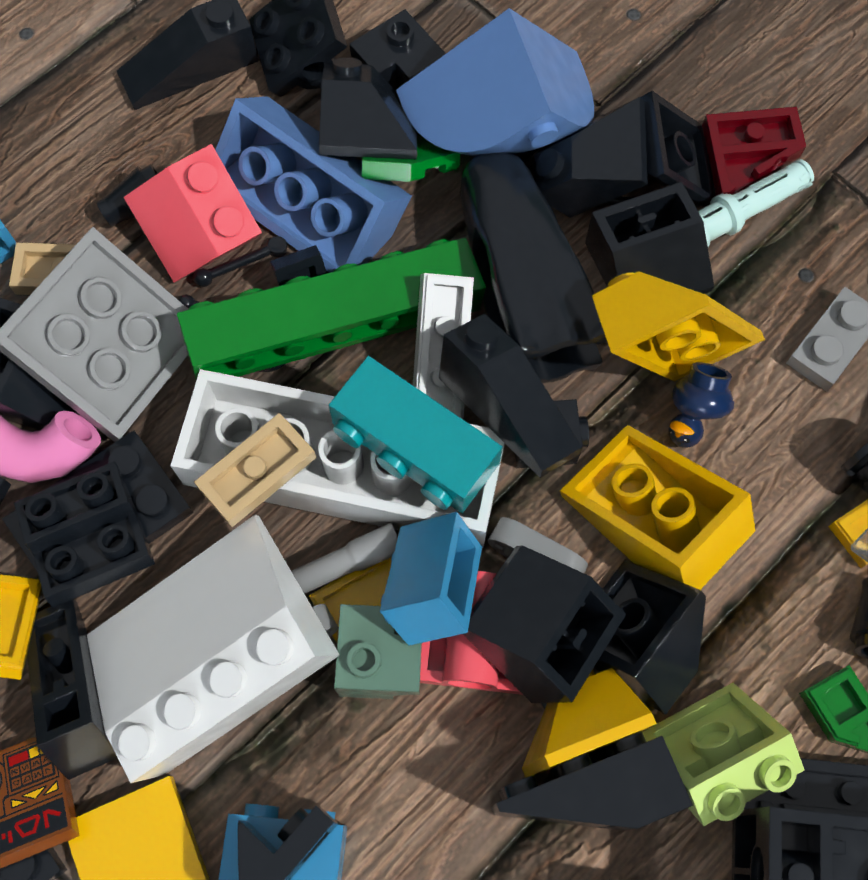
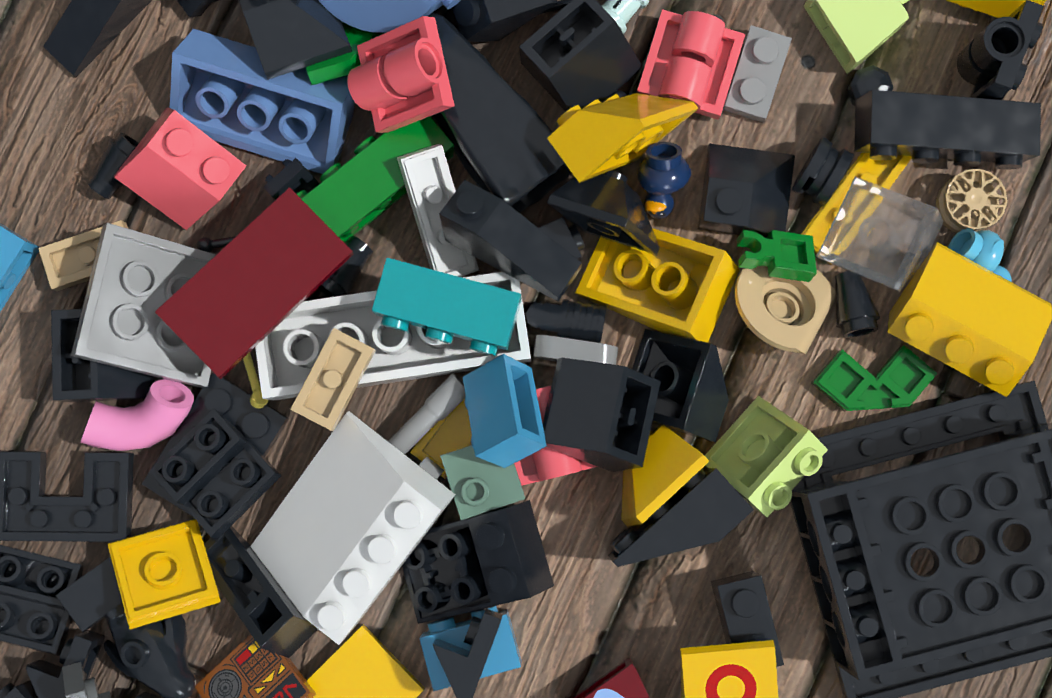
camera: 15 degrees left, 15 degrees up
(181, 403) = (256, 397): none -> light yellow hinge
(215, 341) = (254, 283): none -> dark red tile
(276, 247) = (258, 164): black hinge -> none
(319, 371) = (344, 278): none -> black cone
(333, 752) = (477, 563): none -> black slope
(459, 192) = (402, 76): none -> coral plate
(542, 512) = (570, 319): none -> black hinge
(624, 410) = (607, 210): none -> black slope
(775, 294) = (692, 60): none -> coral plate
(787, 455) = (745, 190): none -> black slope
(797, 582) = (783, 310): none -> tan hat
(811, 527) = (782, 252): none -> green plate

